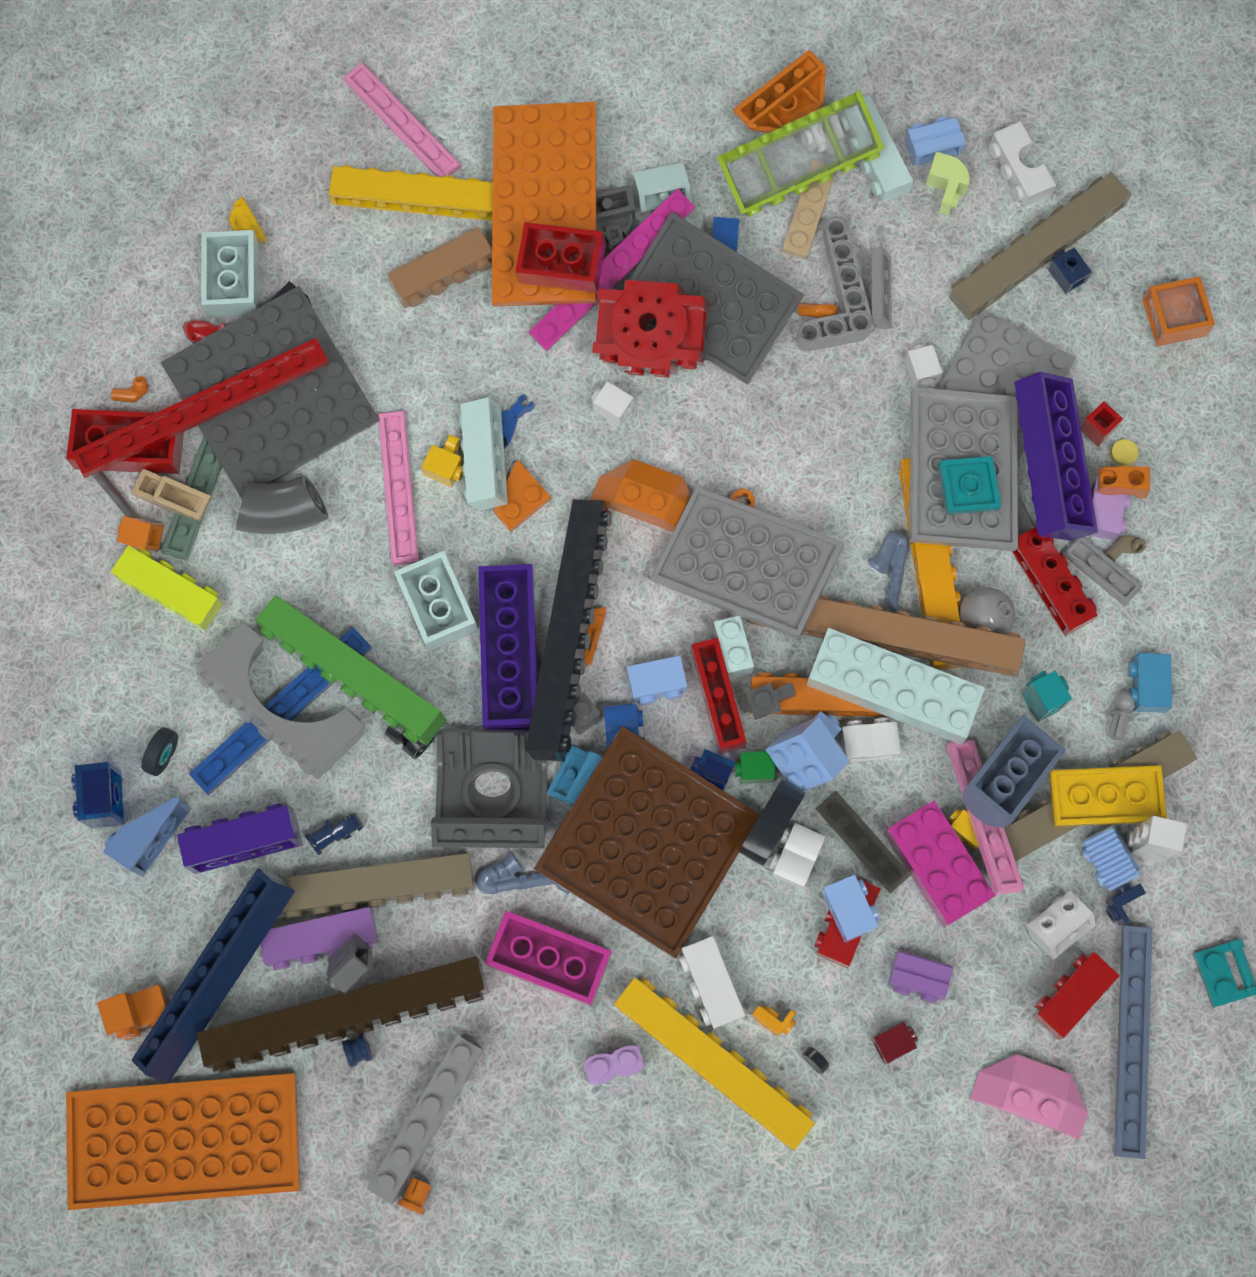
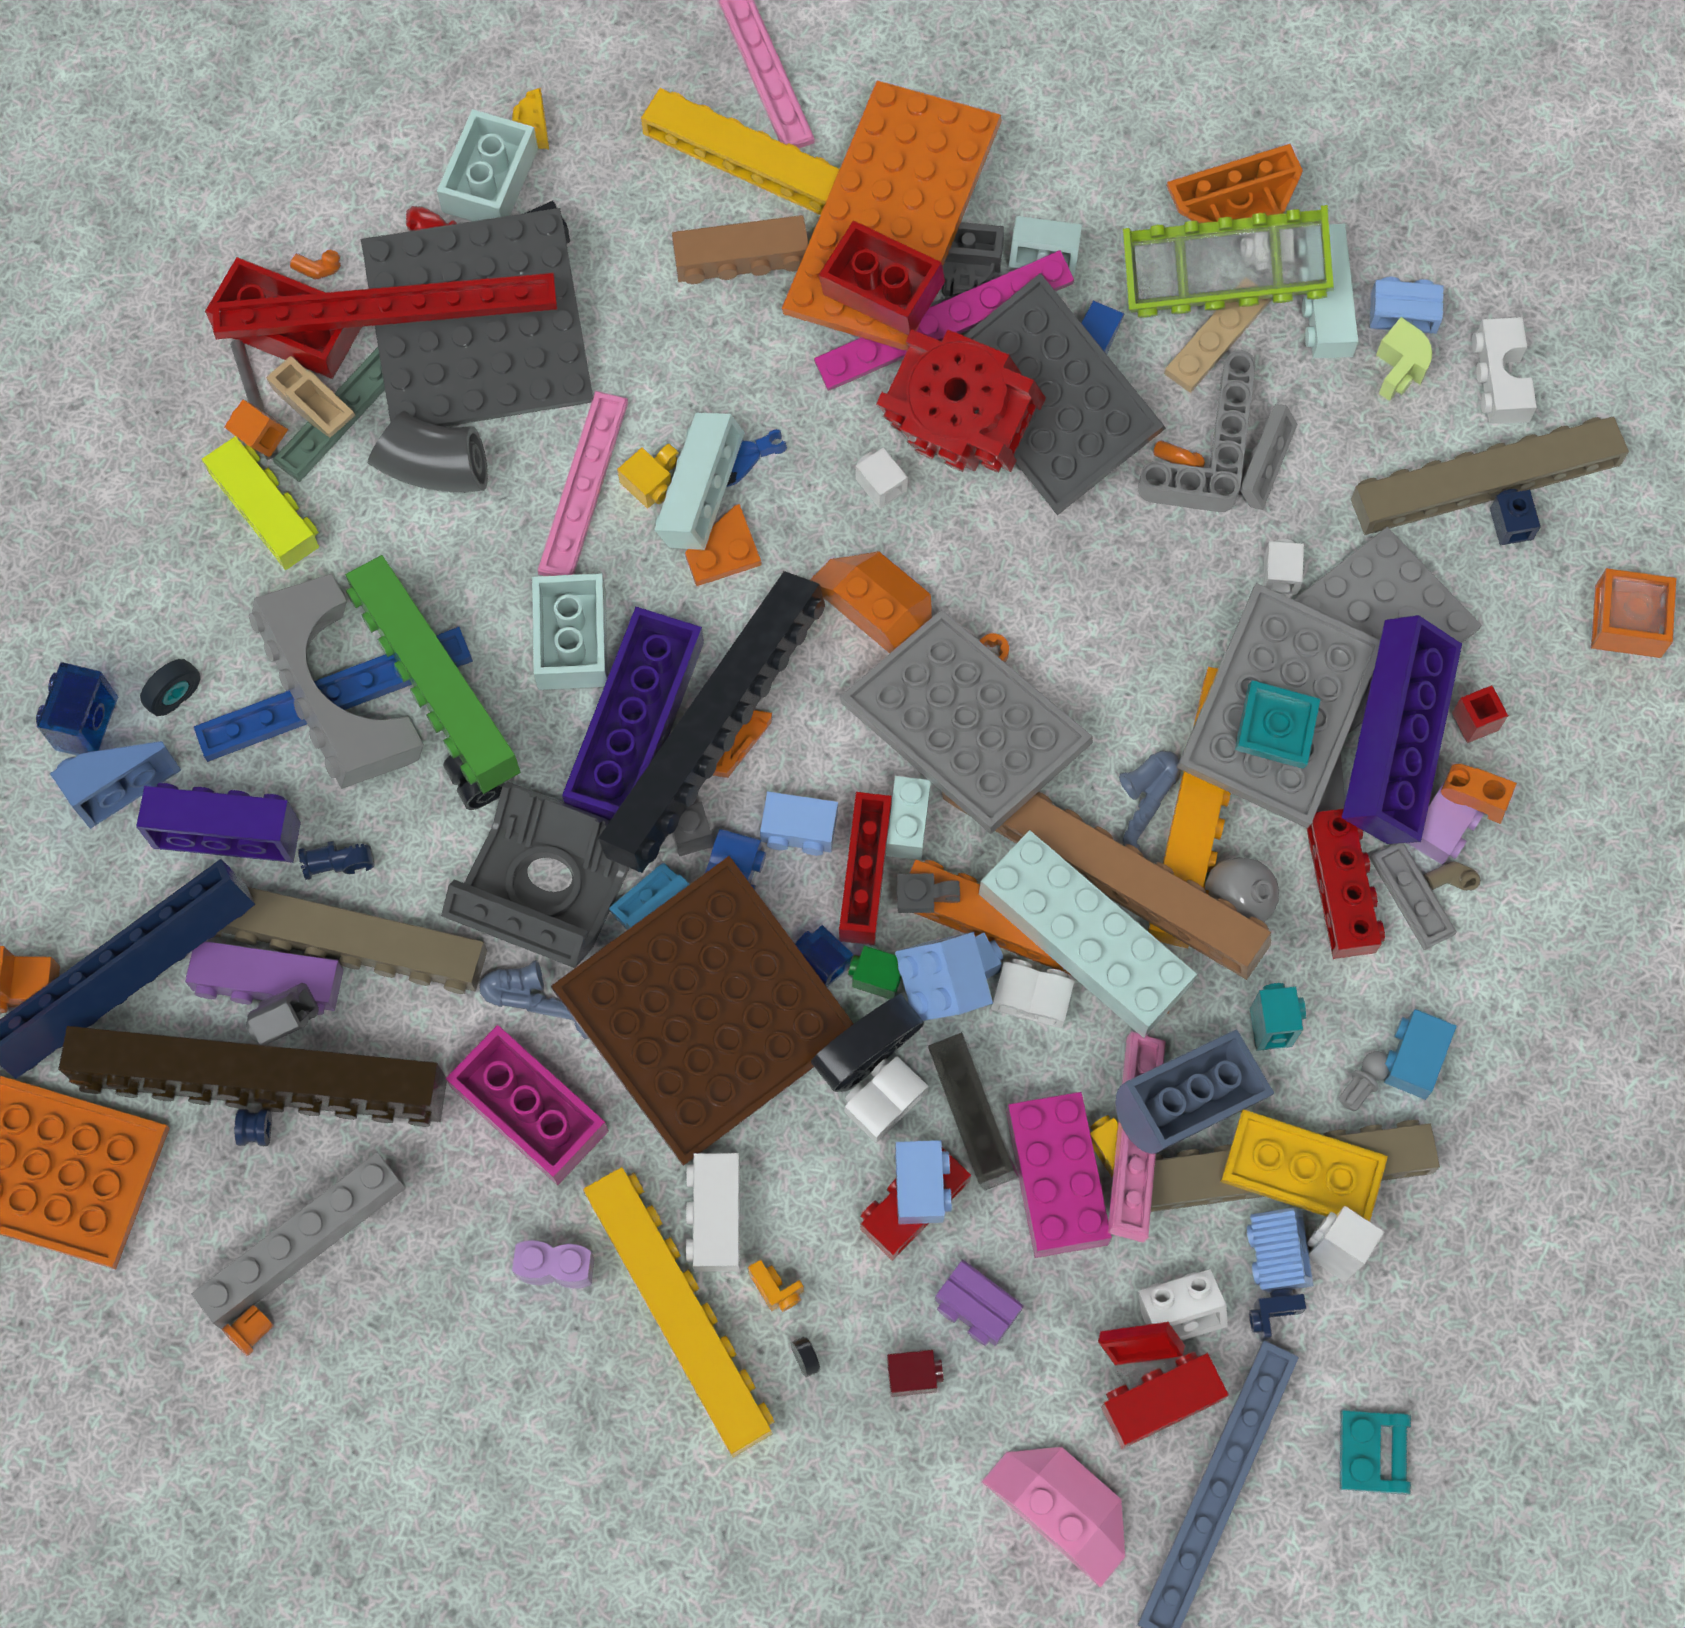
camera: 20 degrees right, 5 degrees down
(1044, 961) = (1141, 1343): none -> red tile
(1124, 452) = (1498, 760): light yellow tile -> none

